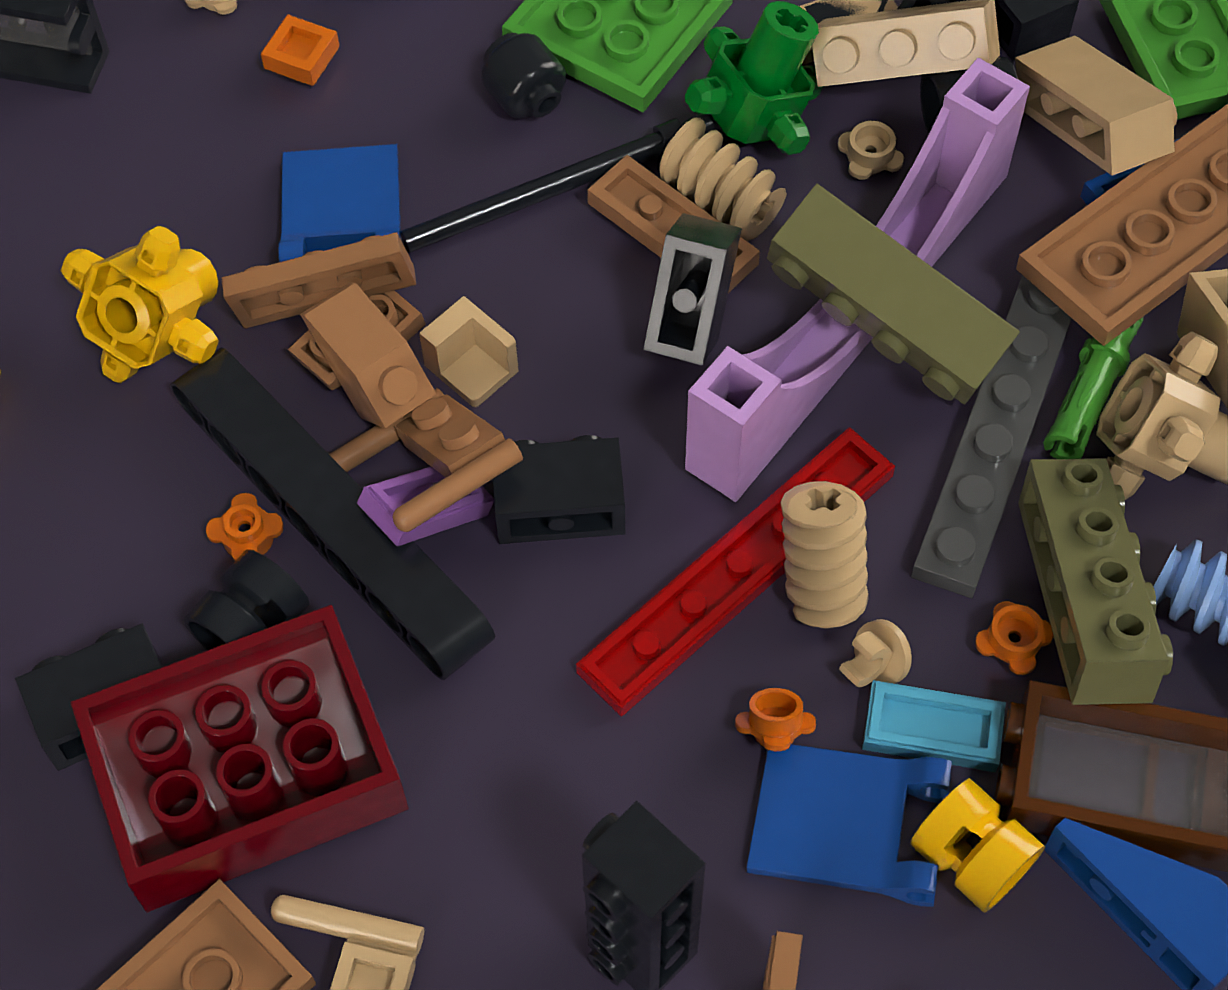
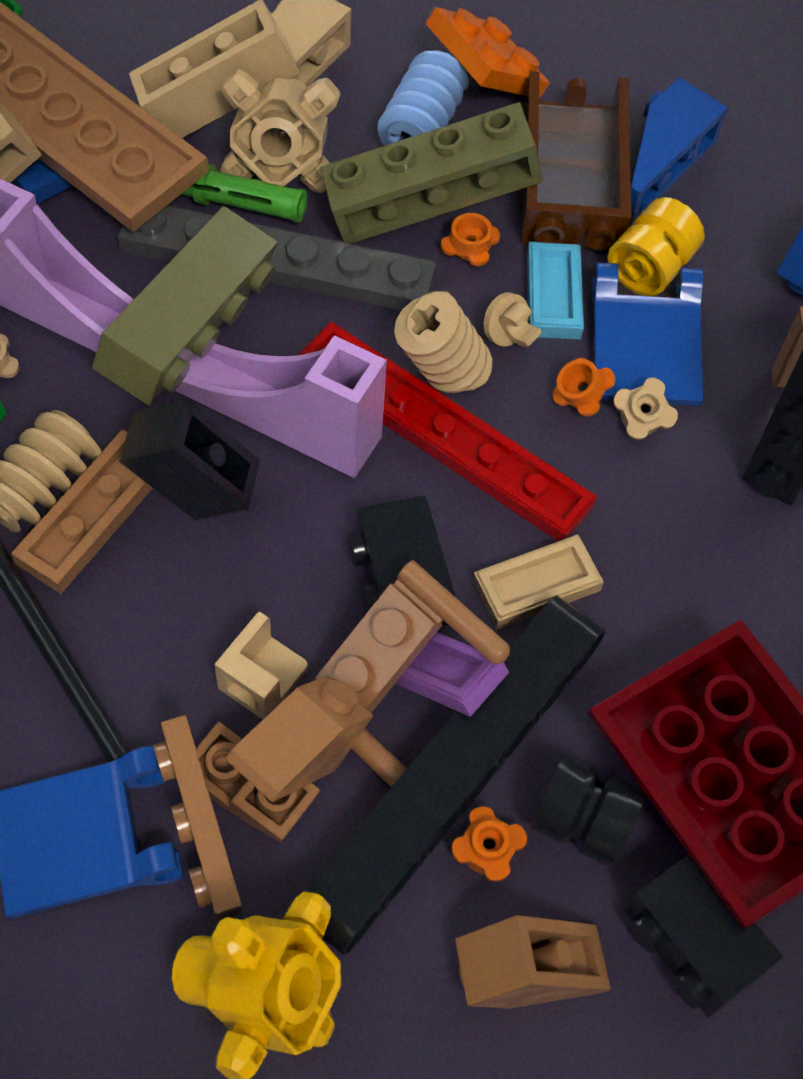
camera: 105 degrees left, 0 degrees up
(114, 542) = (531, 962): none -> medium nougat slope
(528, 631) = (529, 581): none -> tan tile
(745, 798) = (641, 424): none -> tan plate

